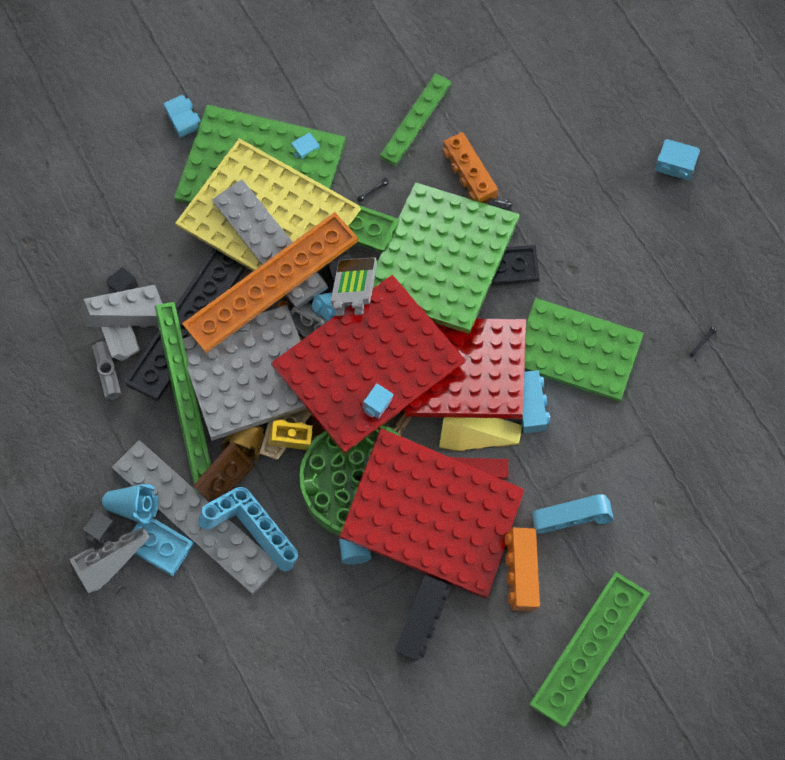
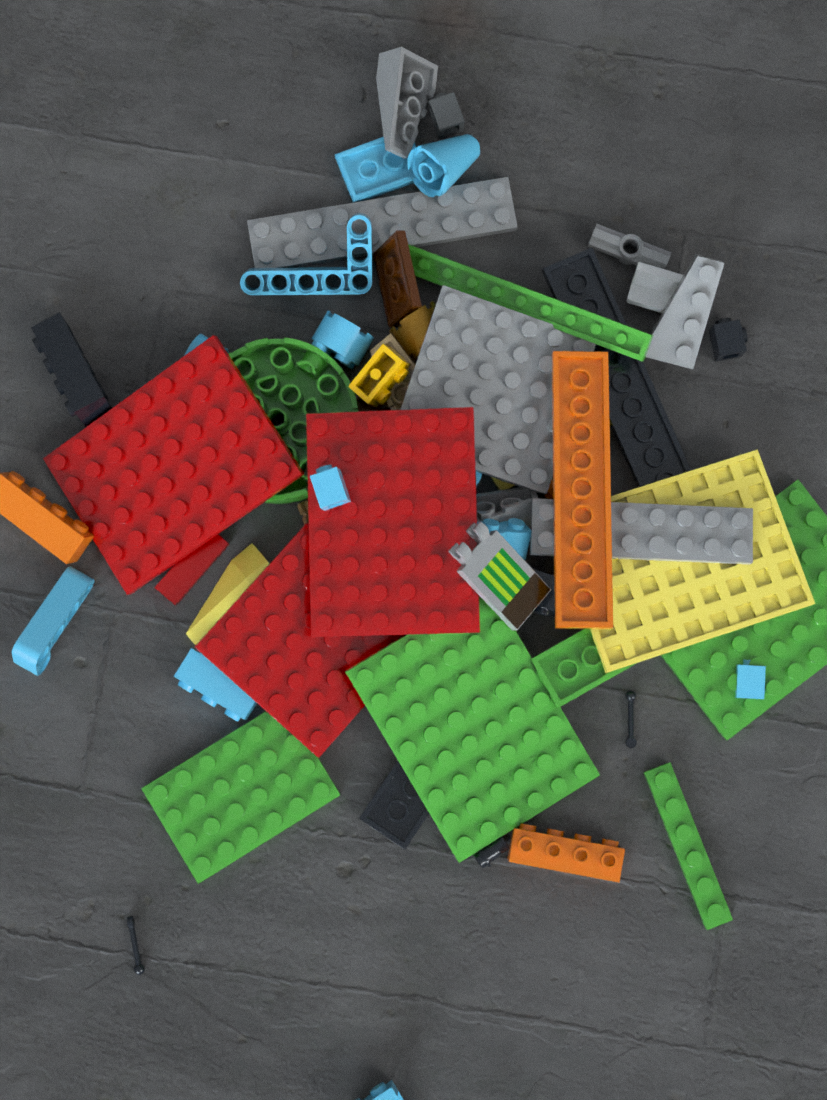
camera: 125 degrees right, 15 degrees up
(283, 480) = (341, 338): none -> medium azure brick

